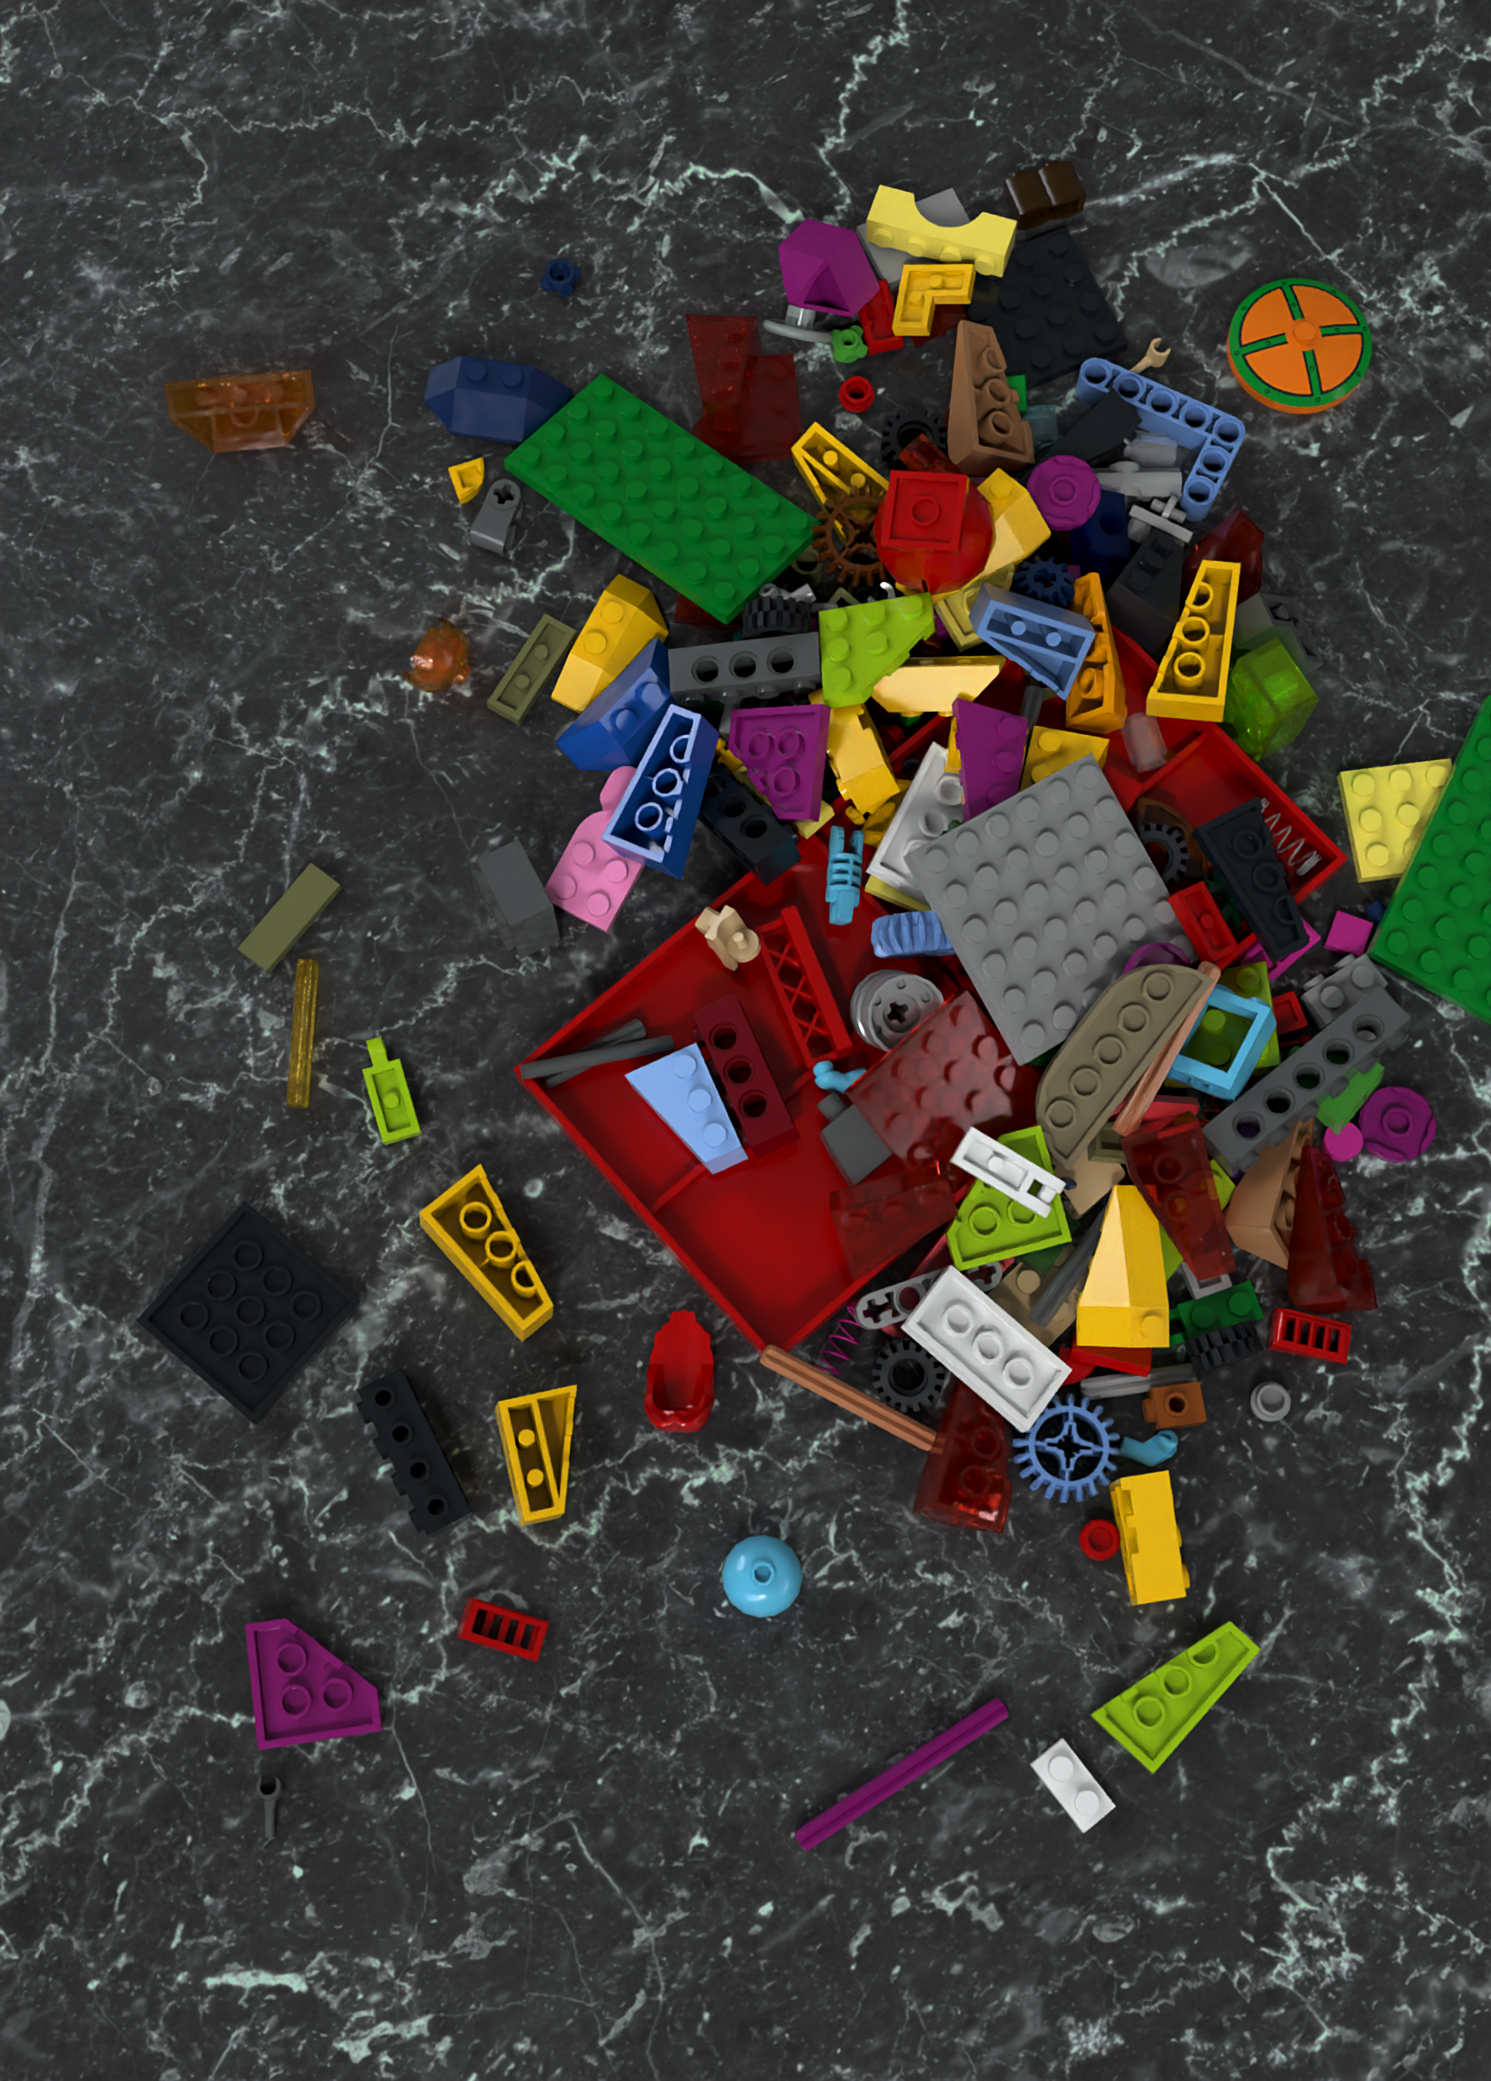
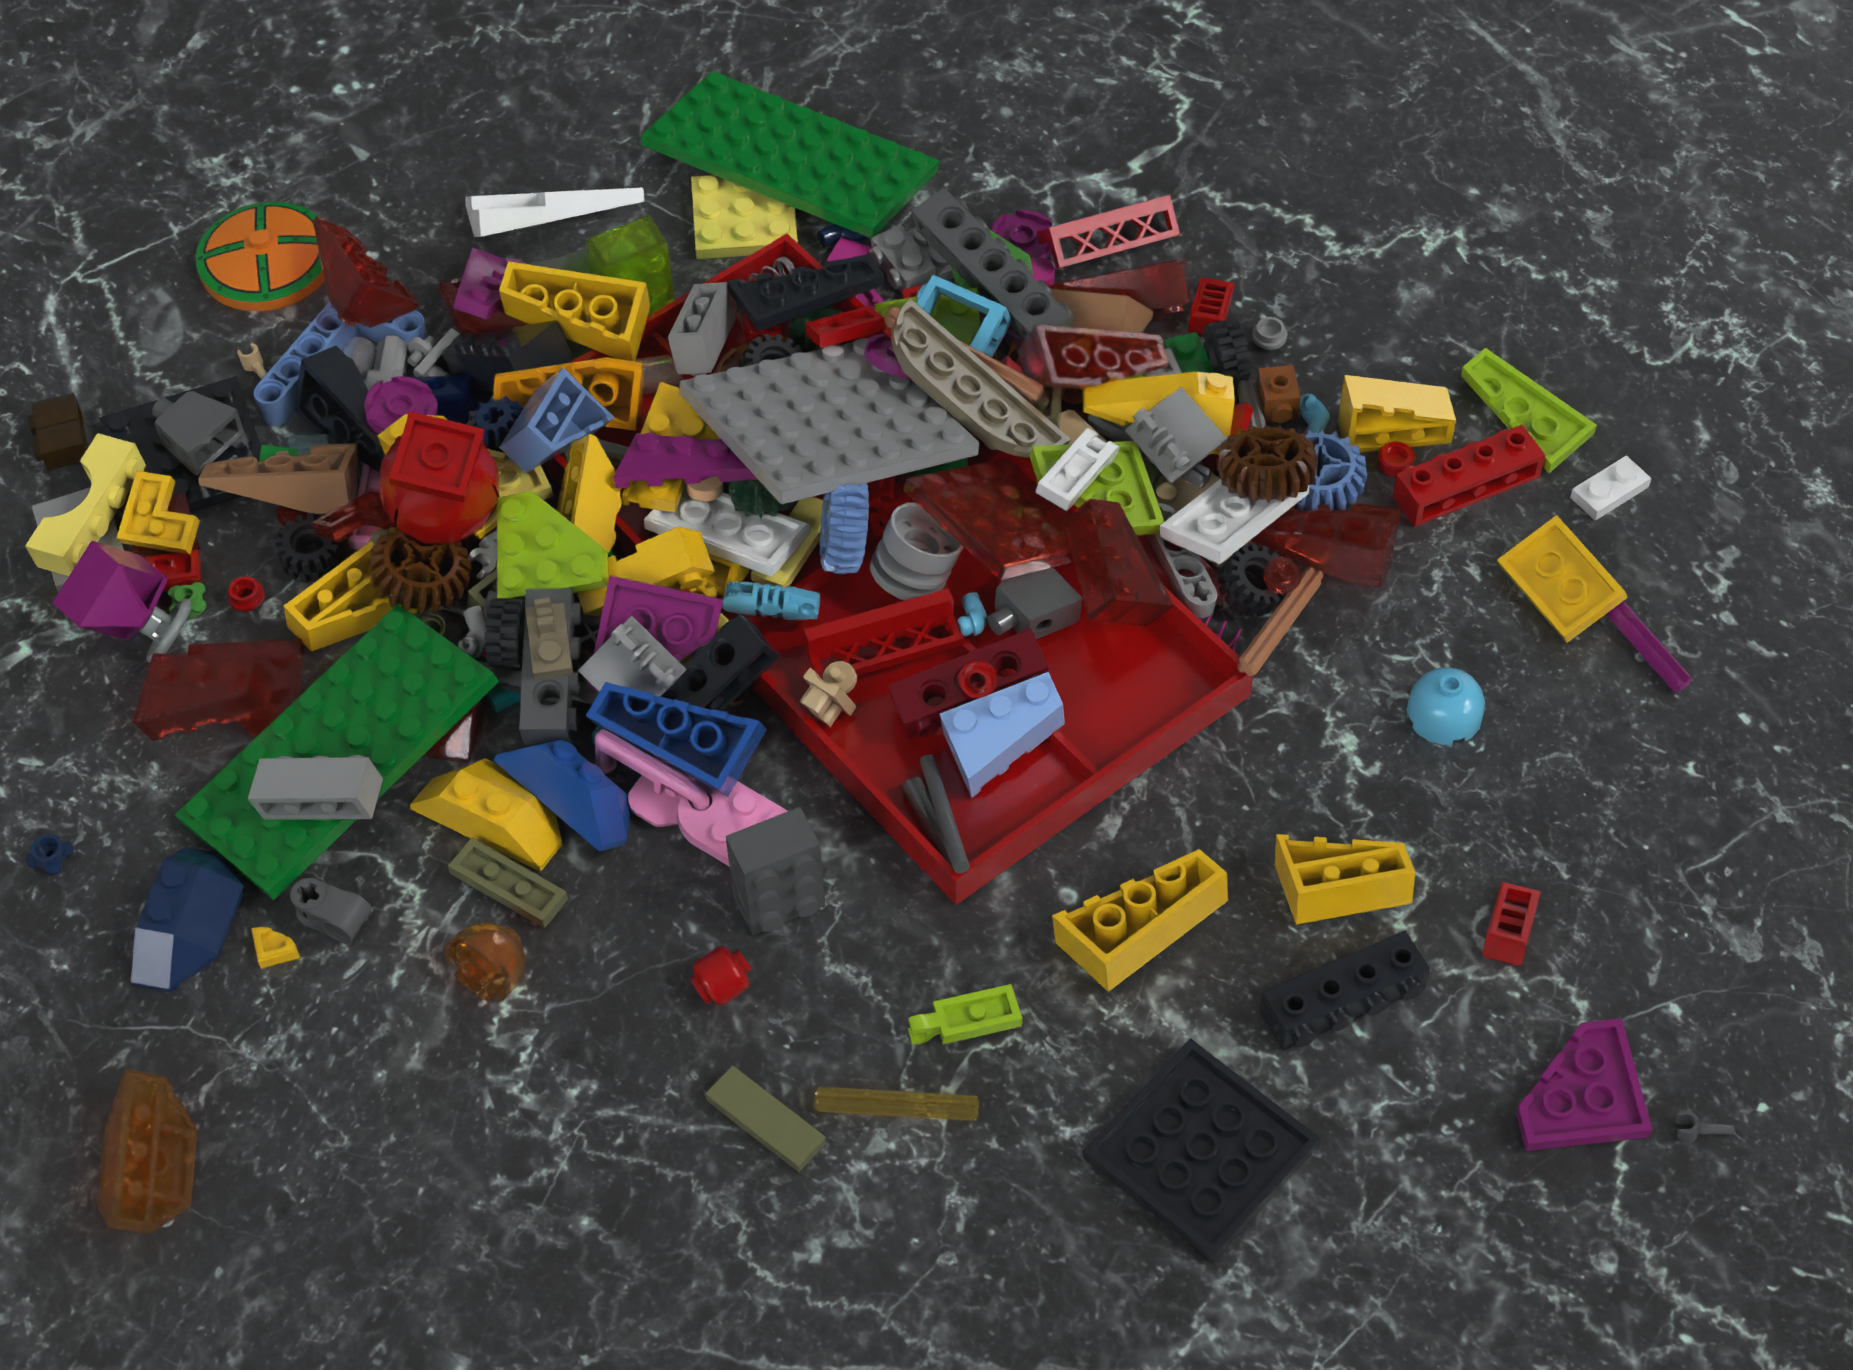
camera: 85 degrees left, 20 degrees down
(428, 865) = (721, 975): none -> red head
(595, 477) = (315, 788): none -> light grey brick
(680, 1376) = (1263, 760): red hair -> none
(726, 1075) = (978, 689): none -> red plate
(744, 746) = (633, 661): none -> light grey hinge
(759, 660) = (548, 639): none -> dark tan plate
(908, 1388) = (1282, 575): none -> clear red plate
(928, 1713) = (1562, 578): none -> yellow plate
(1038, 310) = (196, 428): none -> dark grey torso
(1062, 1404) = (1267, 463): none -> reddish brown gear
(1073, 1619) = (1468, 475): none -> red brick
(1077, 1282) = (1175, 434): none -> light grey hinge
(1193, 776) = (702, 328): none -> light grey brick
(1237, 433) = (356, 281): none -> clear red wedge
(1267, 560) = (481, 284): none -> magenta wing
(1383, 591) = (513, 211): none -> white wedge
(1418, 1212) = (1101, 221): none -> fence

